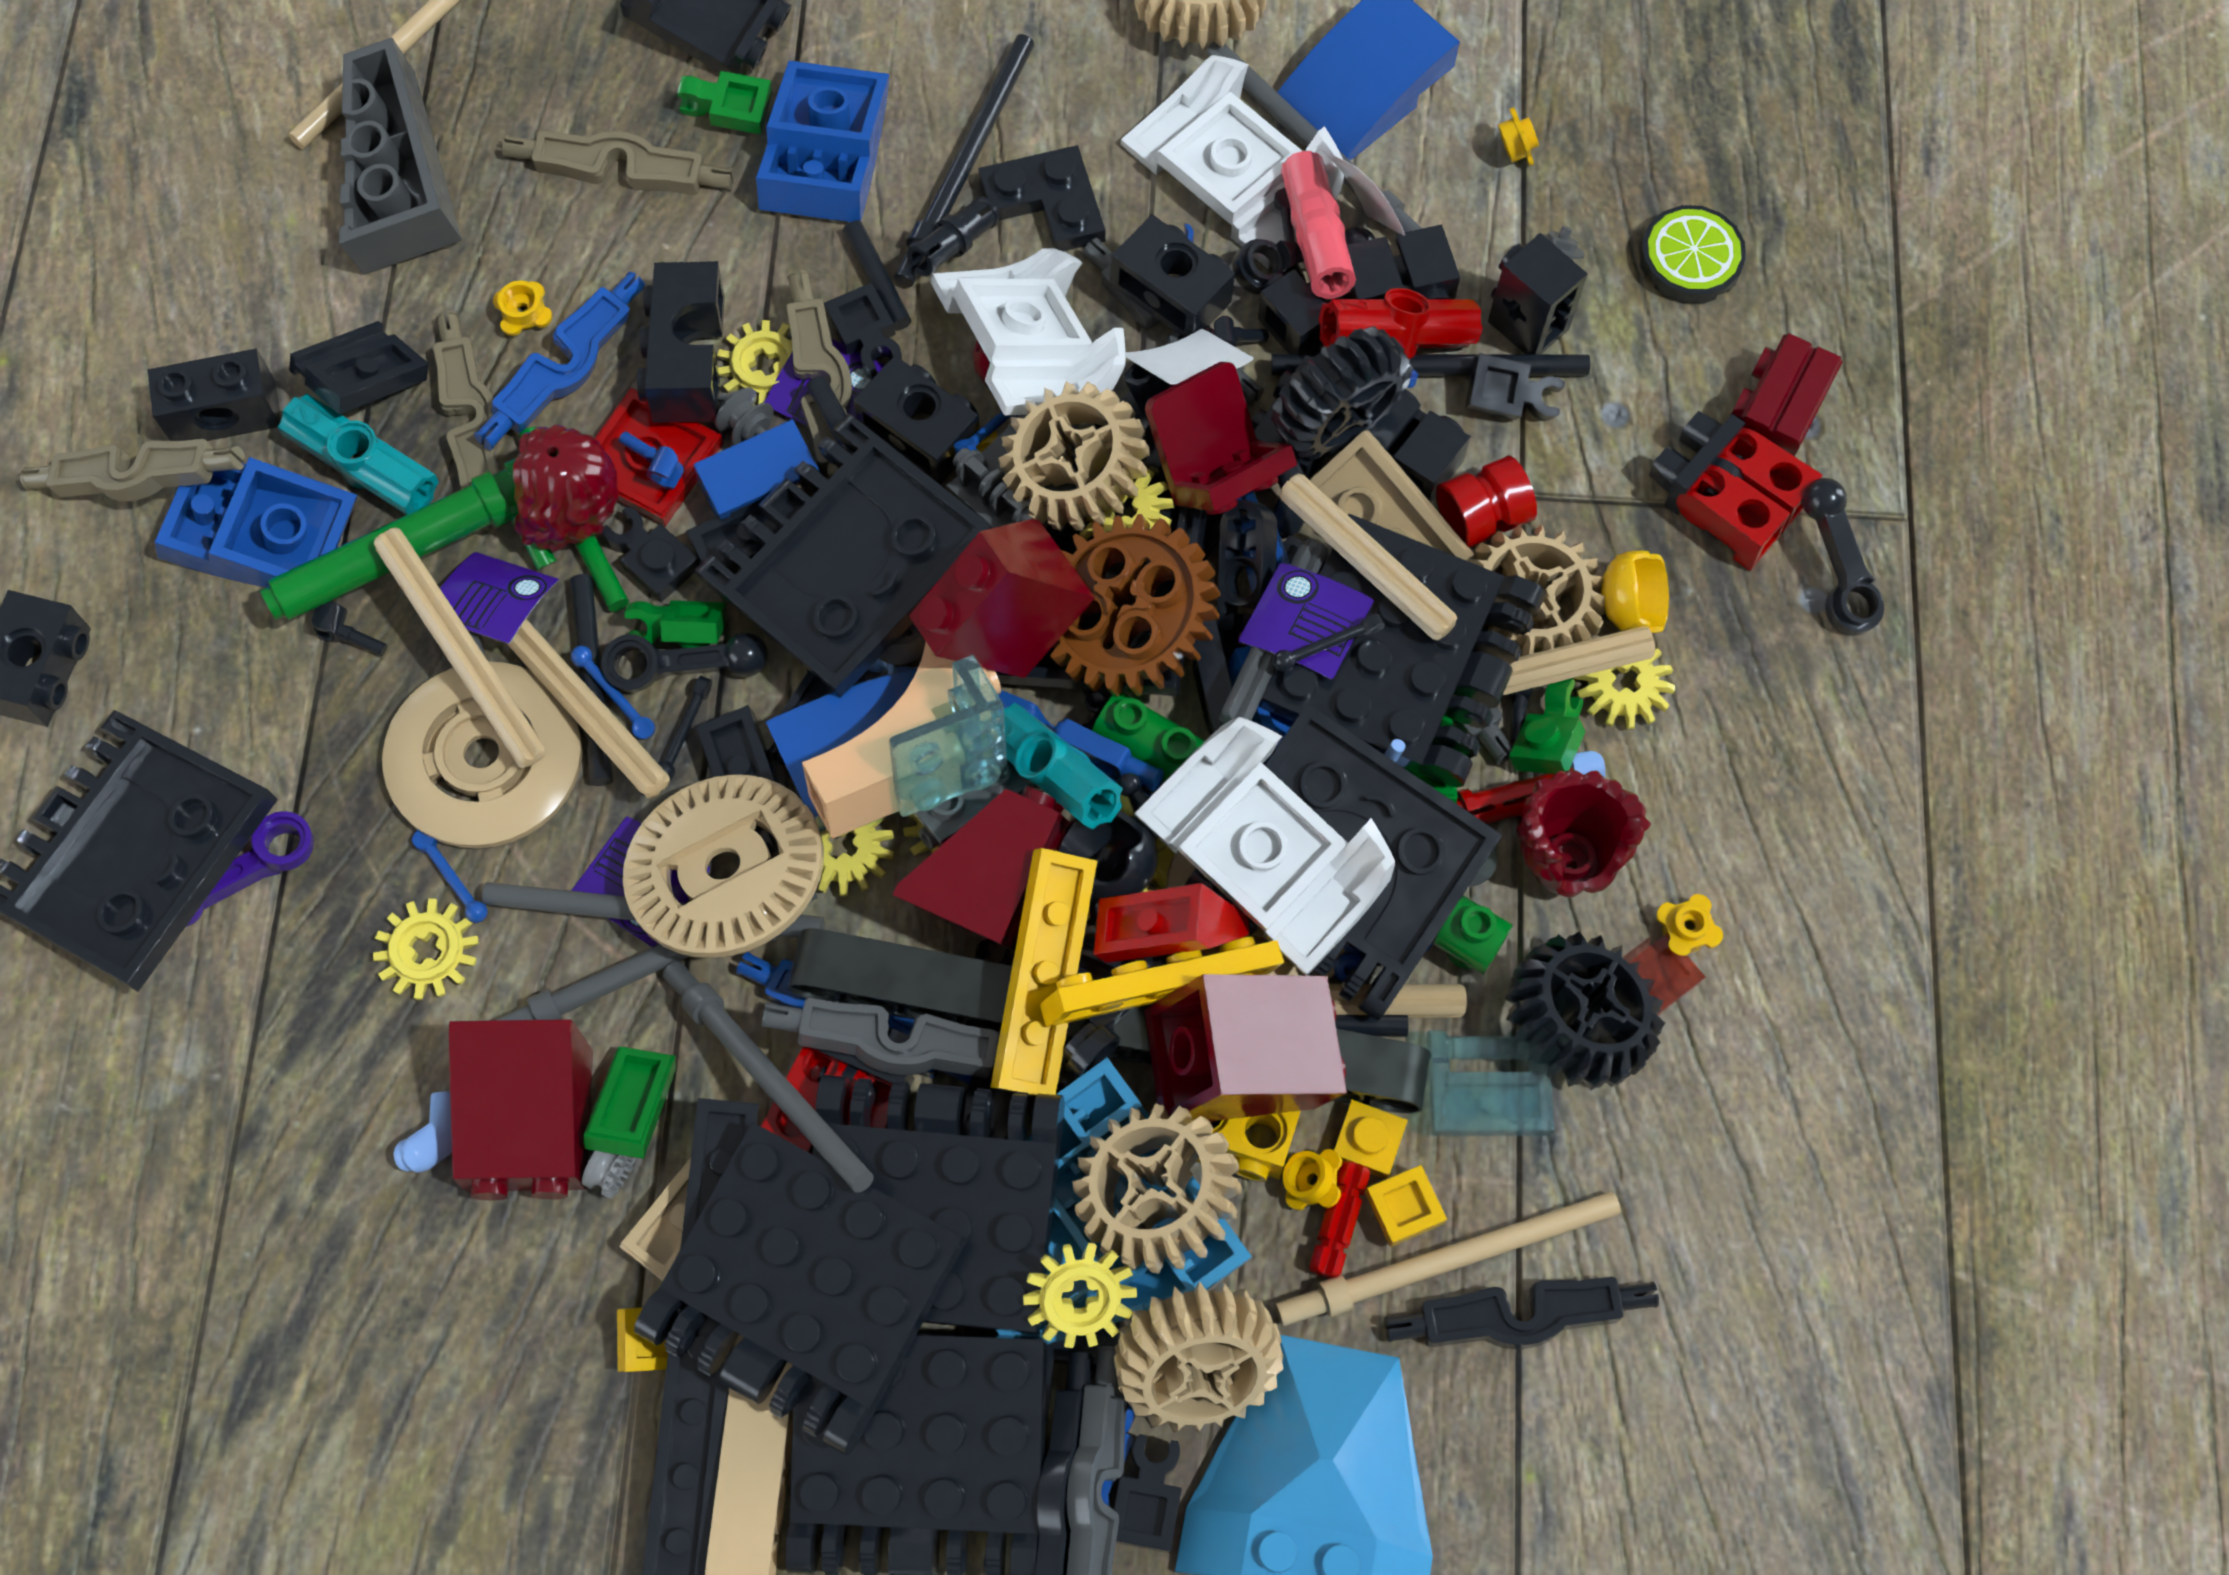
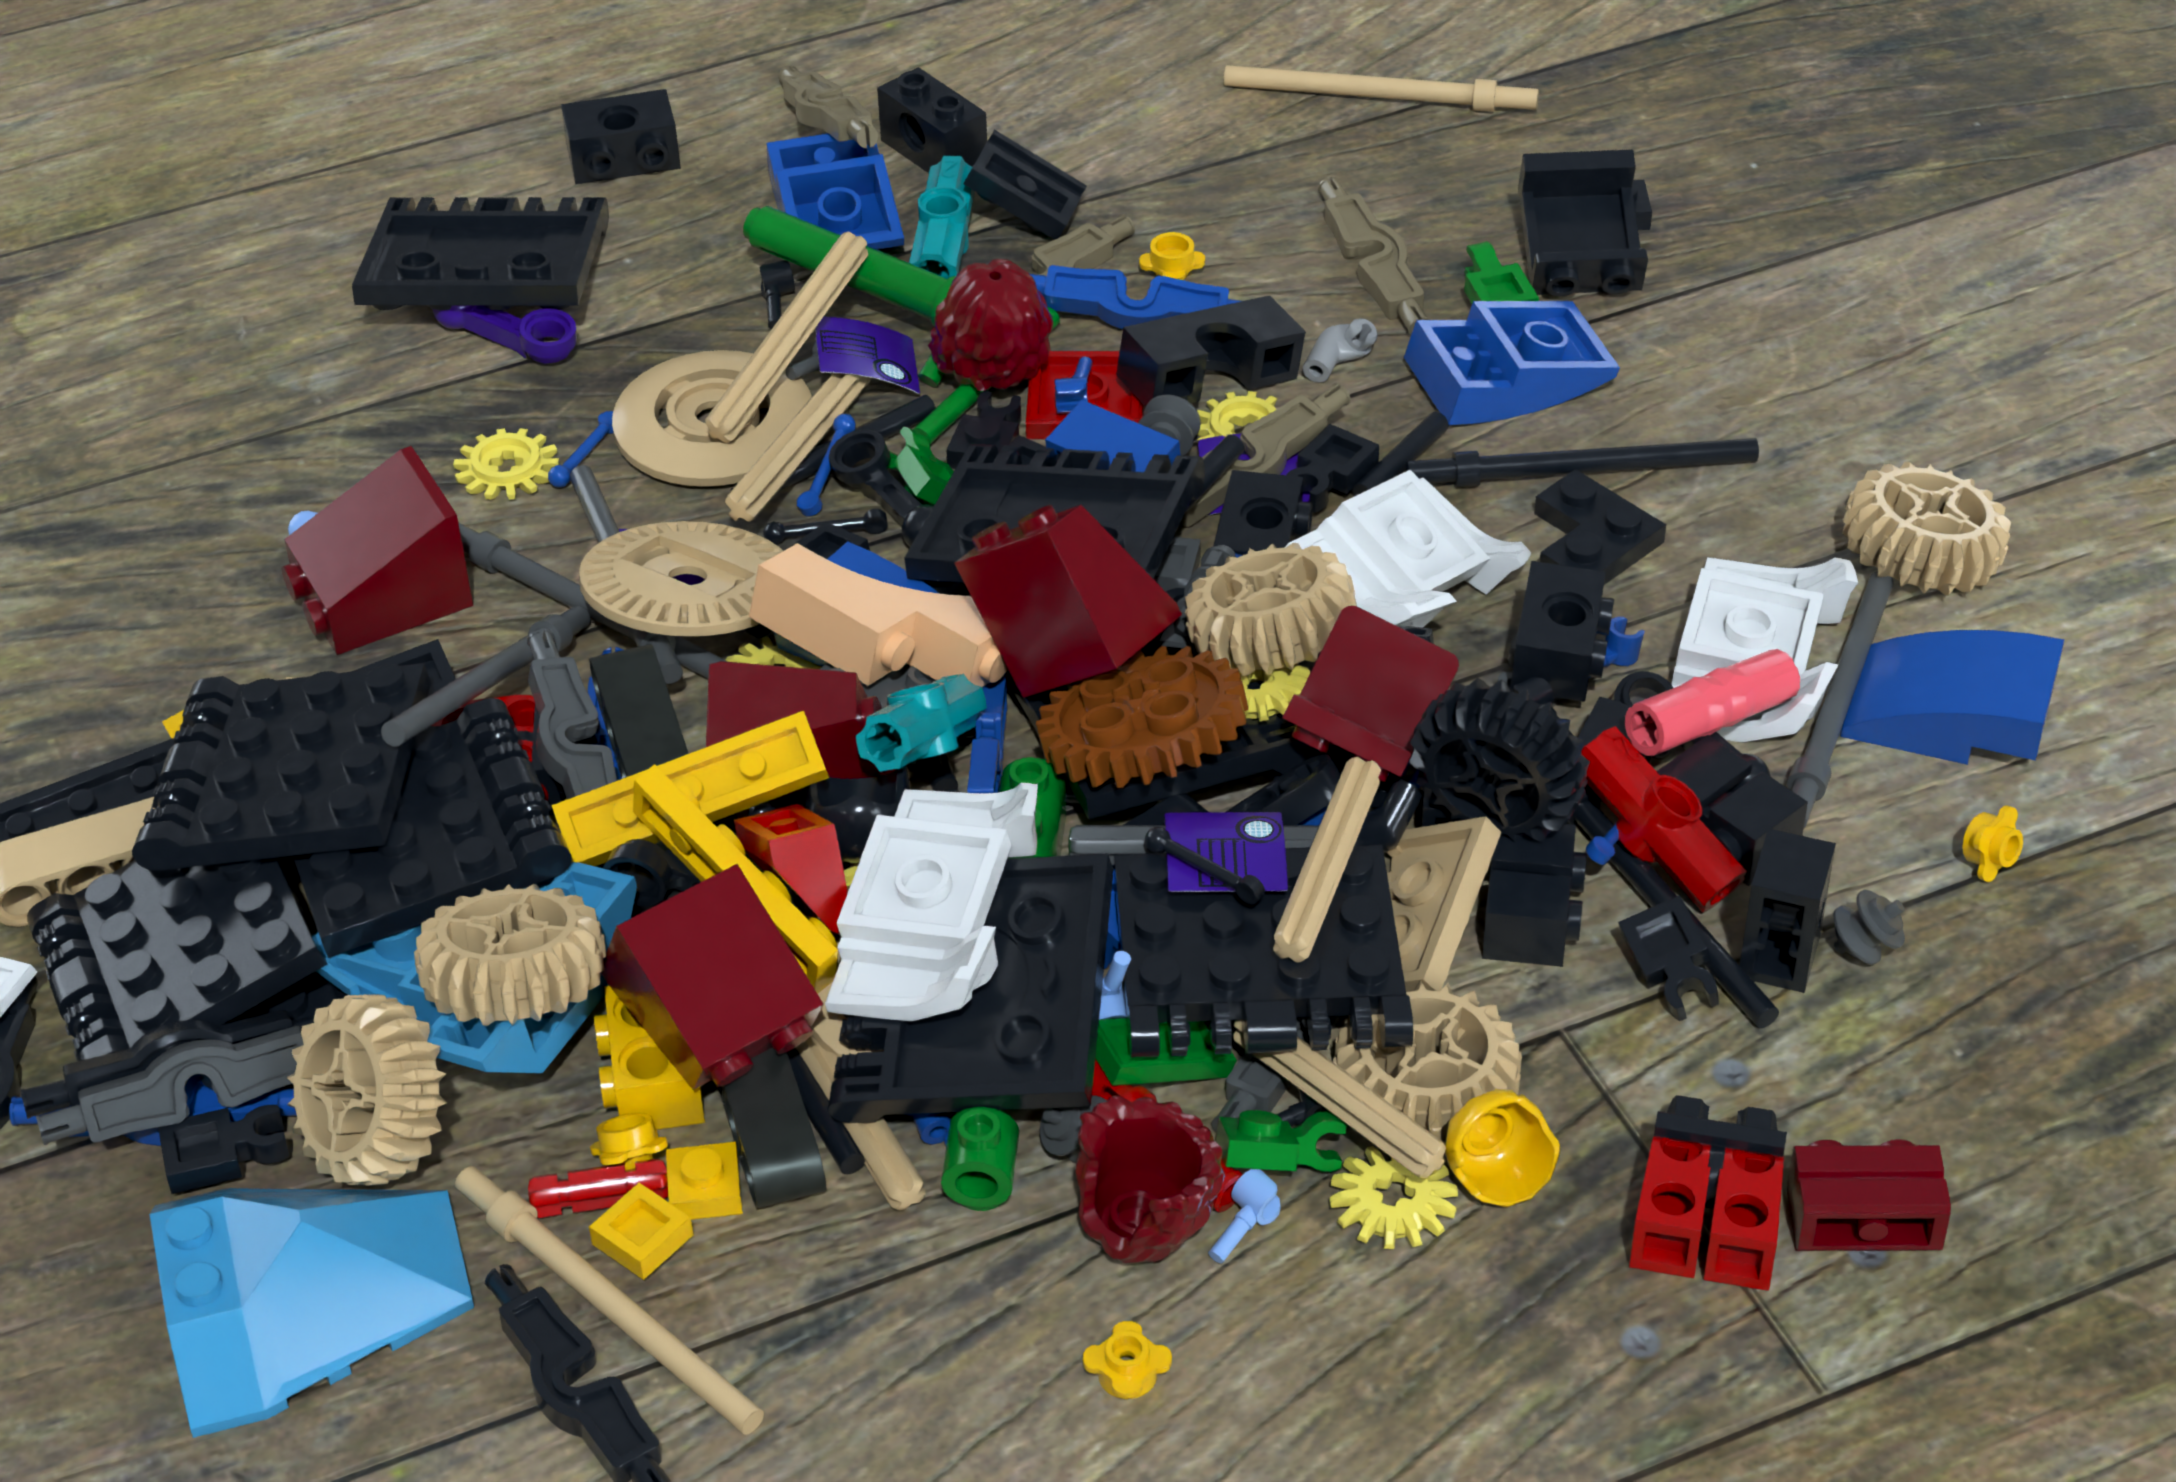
camera: 65 degrees right, 25 degrees down
(393, 174) = (1242, 119): dark grey wedge -> none
(606, 1171) = (349, 655): light grey bush -> none
(630, 1102) = (406, 623): green tile -> none
(717, 245) = (1339, 345): none -> light grey arm
(952, 236) = (1478, 476): black pin -> none
(954, 751) = (880, 628): clear light blue bracket -> none
(1097, 1310) = (347, 943): light yellow gear -> none
(1188, 356) = (1470, 664): white sticker -> none
(1371, 198) = (1786, 713): white sticker -> none
(1487, 1100) = (807, 1263): clear light blue plate -> none
(1494, 498) = (1521, 981): red wheel -> none
(1584, 1011) = (912, 1298): black gear -> none
(1672, 973) = (1053, 1366): clear red tile -> none
(1692, 254) = (1993, 1054): tile -> none
(1826, 503) = (1743, 1261): black piece -> none

